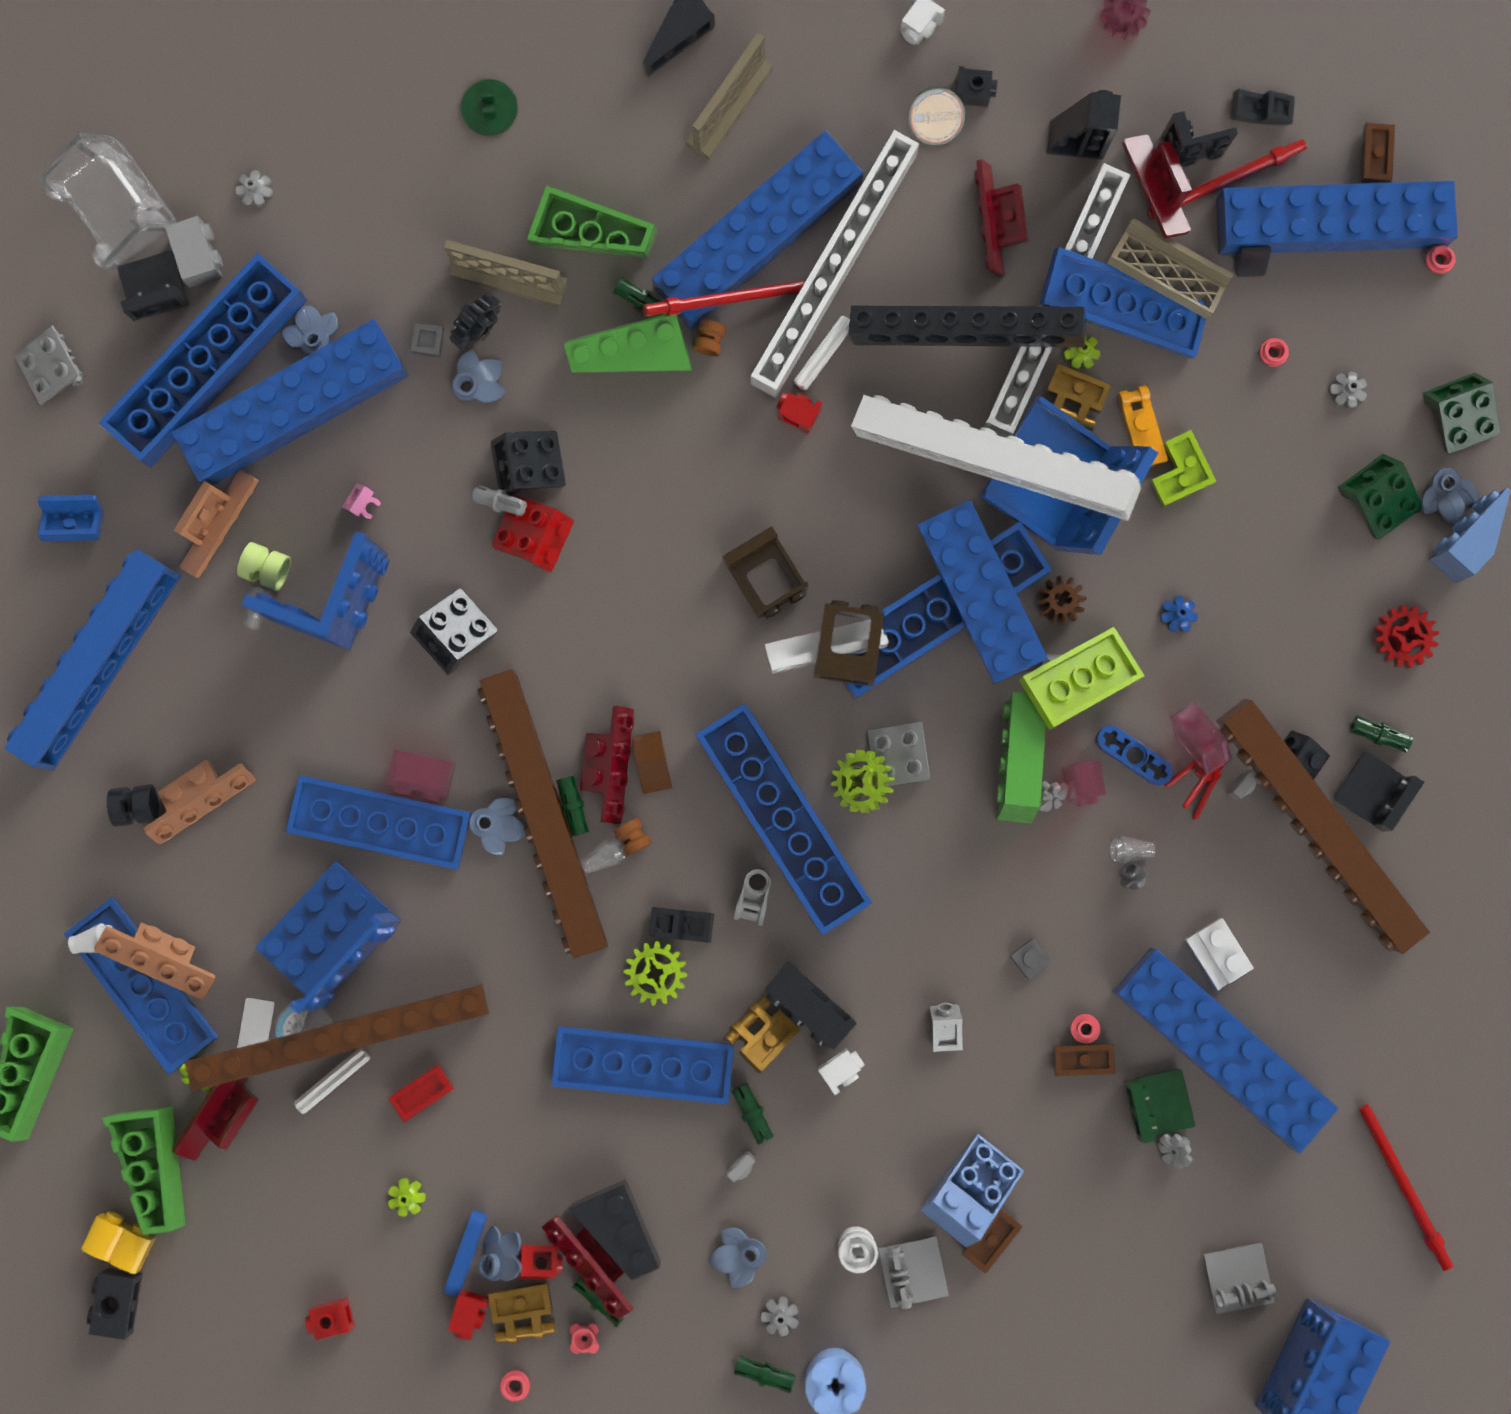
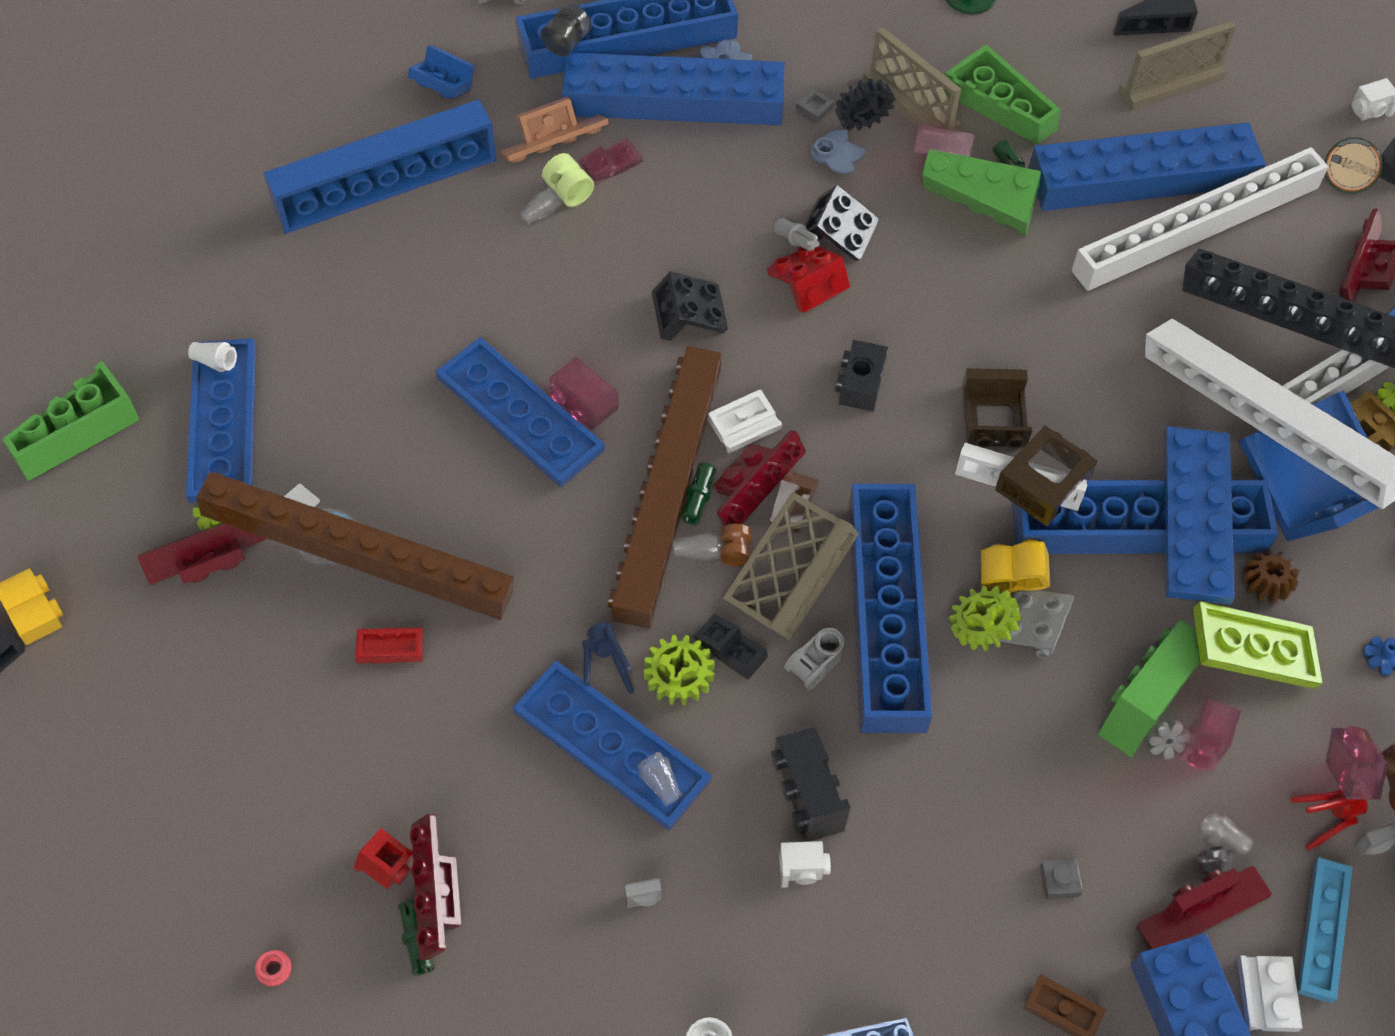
camera: 30 degrees right, 25 degrees down
(128, 805) = (326, 282): black wheel -> none
(150, 1166) = (108, 557): bright green wedge -> none
(156, 956) = (253, 396): nougat bracket -> none
(163, 429) = (566, 30): none -> clear smoke wheel
(194, 797) = (381, 309): nougat bracket -> none
(285, 516) = (604, 164): none -> clear pink slope
(327, 936) = (409, 472): blue bracket -> none
(332, 1080) = (319, 589): white axle -> none
(339, 1314) = (160, 797): red brick -> none
(347, 601) = (613, 221): blue bracket -> none
(358, 499) = (678, 178): bright pink tile -> none
(411, 1194) = (306, 729): lime plant -> none
(465, 1253) = (321, 810): blue beam -> none
(468, 1314) = (281, 866): red brick -> none
(500, 1256) = (352, 831): sand blue plate -> none
(502, 825) = (621, 475): sand blue plate -> none
(521, 1303) = (335, 889): pearl gold plate -> none
(568, 715) = (744, 421): none -> white plate
(569, 319) = (942, 140): none -> clear pink brick
(580, 1346) = (369, 956): coral plate -> none
(584, 988) = (603, 644): none -> dark blue plant
(619, 1228) = (485, 875): black wedge -> none
(637, 592) = (859, 390): none -> black brick
(674, 305) = (1043, 163): red bar -> none
(698, 1076) = (660, 778): none -> clear cone
(709, 337) = (1053, 220): dark orange wheel -> none
(714, 835) = (815, 573): none -> dark tan fence
(733, 1257) = (575, 984): sand blue plate -> none
(752, 1113) = (687, 853): dark green pin -> none
(768, 1041) = (745, 791): pearl gold plate -> none
(798, 411) = (1103, 307): red brick -> none
(822, 354) = (1148, 281): white axle -> none
(862, 721) = (1016, 566): none -> yellow brick
(946, 1027) = (934, 889): light grey bracket -> none
(1076, 1024) = (1073, 984): coral plate -> none
(1144, 919) = (1204, 906): none -> dark red bracket
(1146, 752) = (1269, 765): blue beam -> none
(1236, 881) = (1325, 930): none -> dark azure plate

